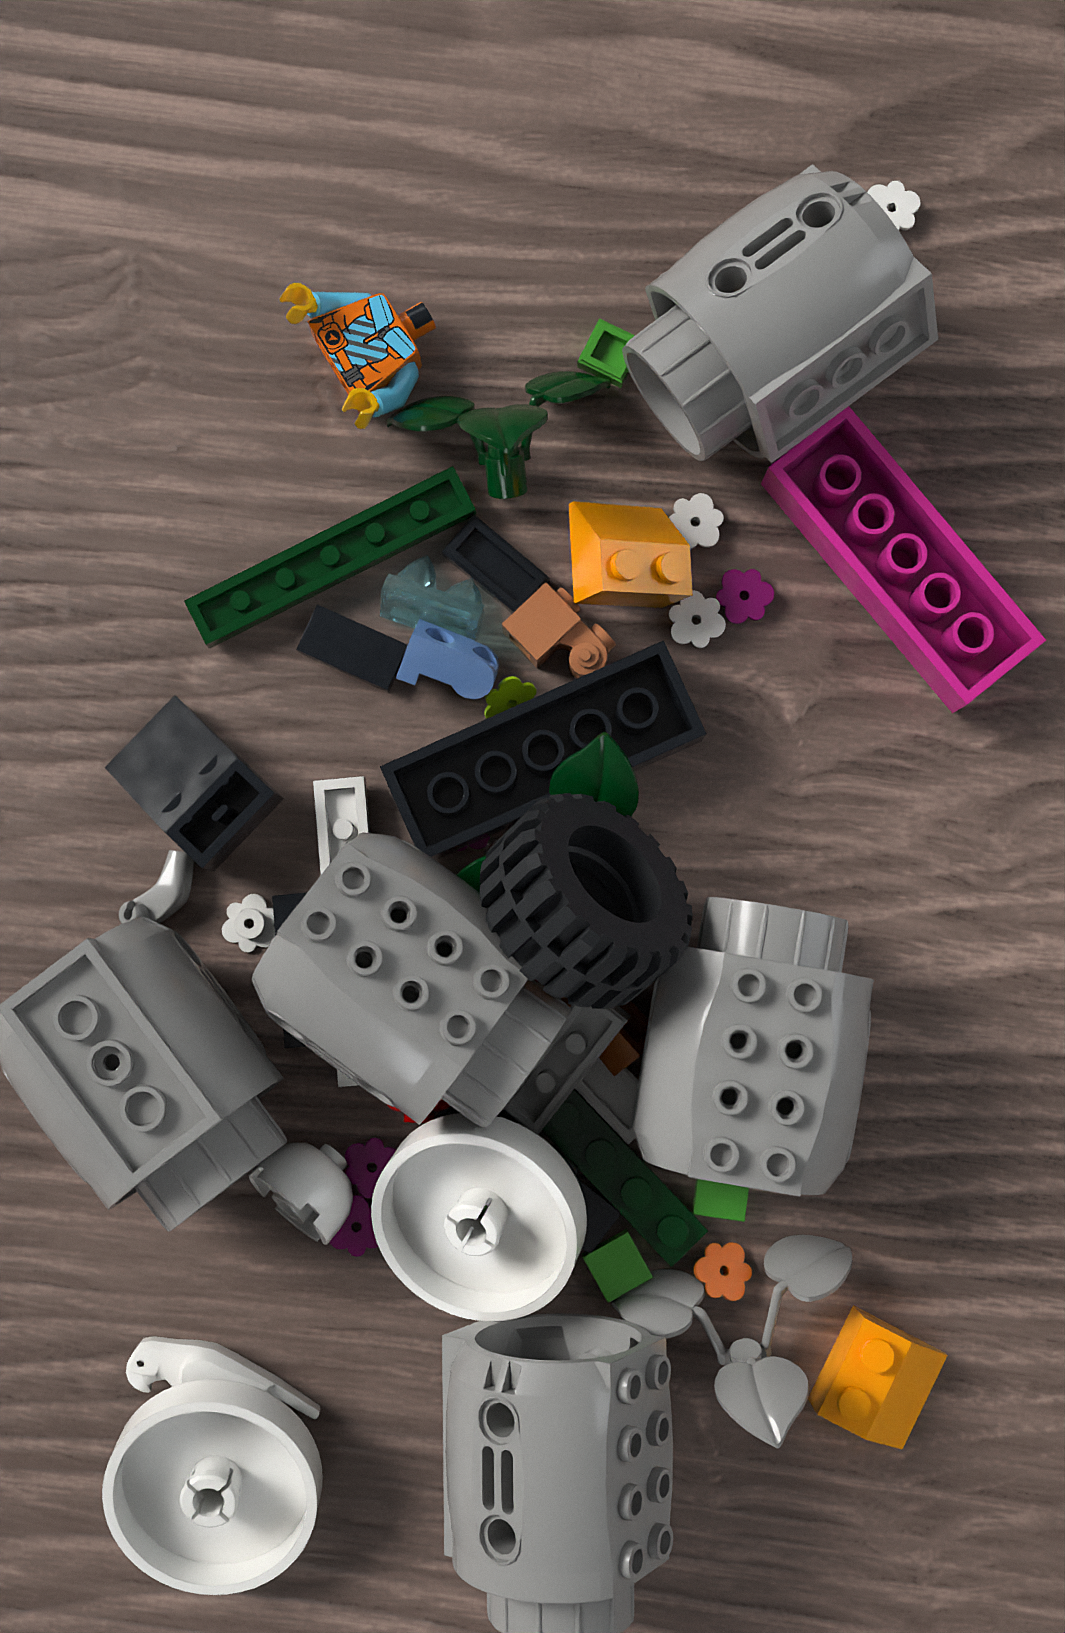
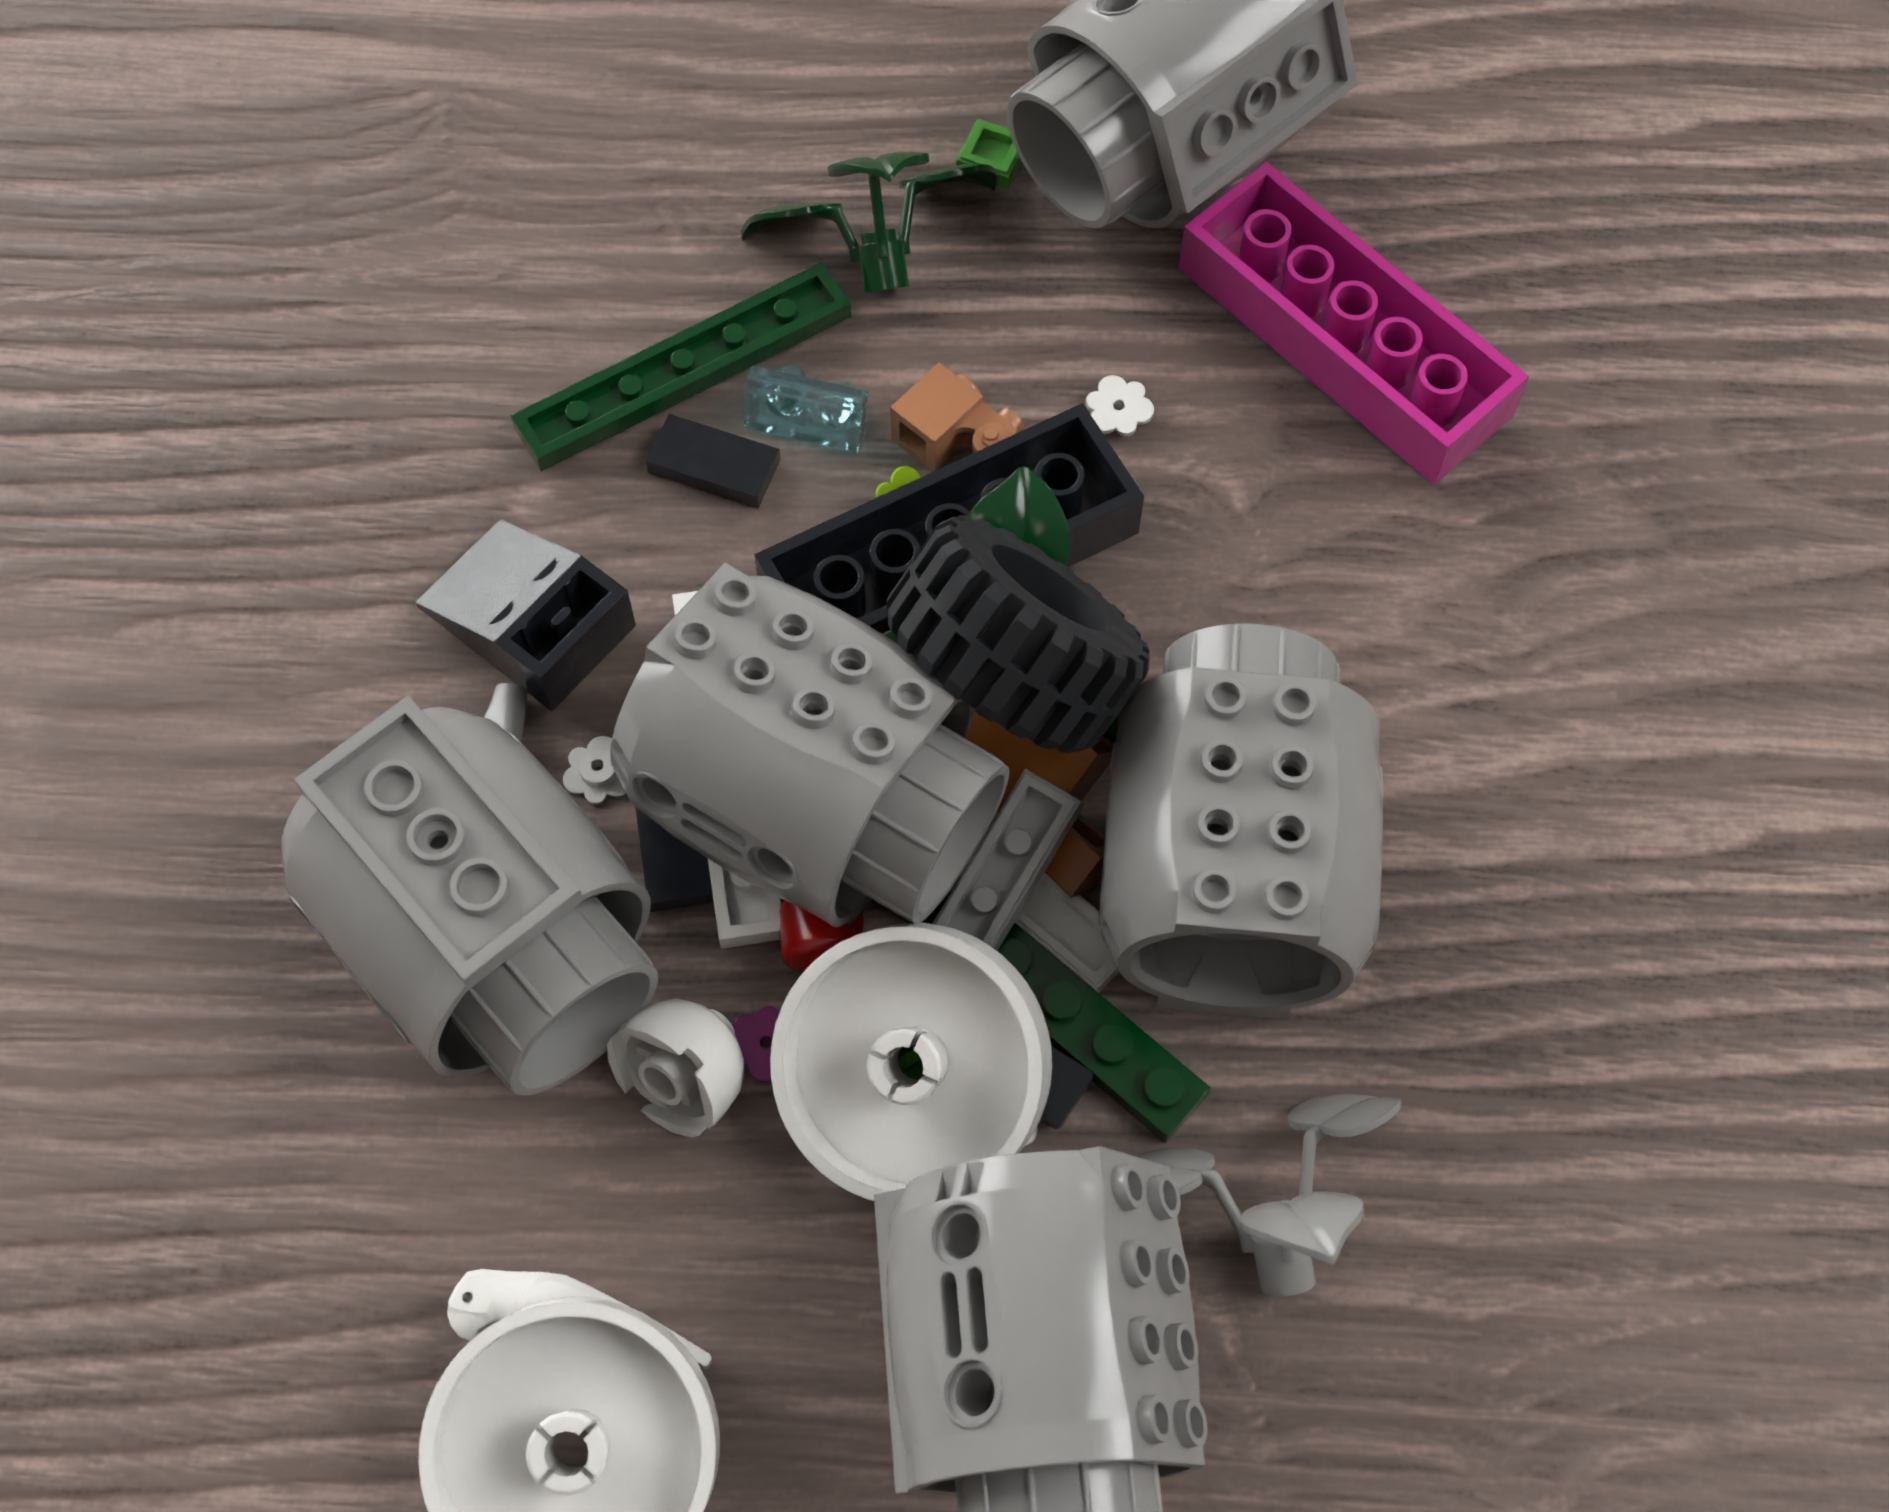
camera: 10 degrees left, 20 degrees down
(354, 1239) = (768, 1128): magenta plant -> none
(364, 345) = (710, 150): torso -> none
(449, 659) = (851, 461): medium blue leg -> none
(494, 564) = (870, 362): black tile -> none
(617, 1265) = (1096, 1126): bright green tile -> none
(627, 556) = (1032, 341): light orange slope -> none
(701, 510) = (1106, 309): white plant -> none
(720, 1200) = (1222, 1041): bright green tile -> none
(730, 1259) = (1236, 1138): orange plant -> none
(748, 583) = (1172, 378): magenta plant -> none
(876, 1380) = (1458, 1258): light orange slope -> none

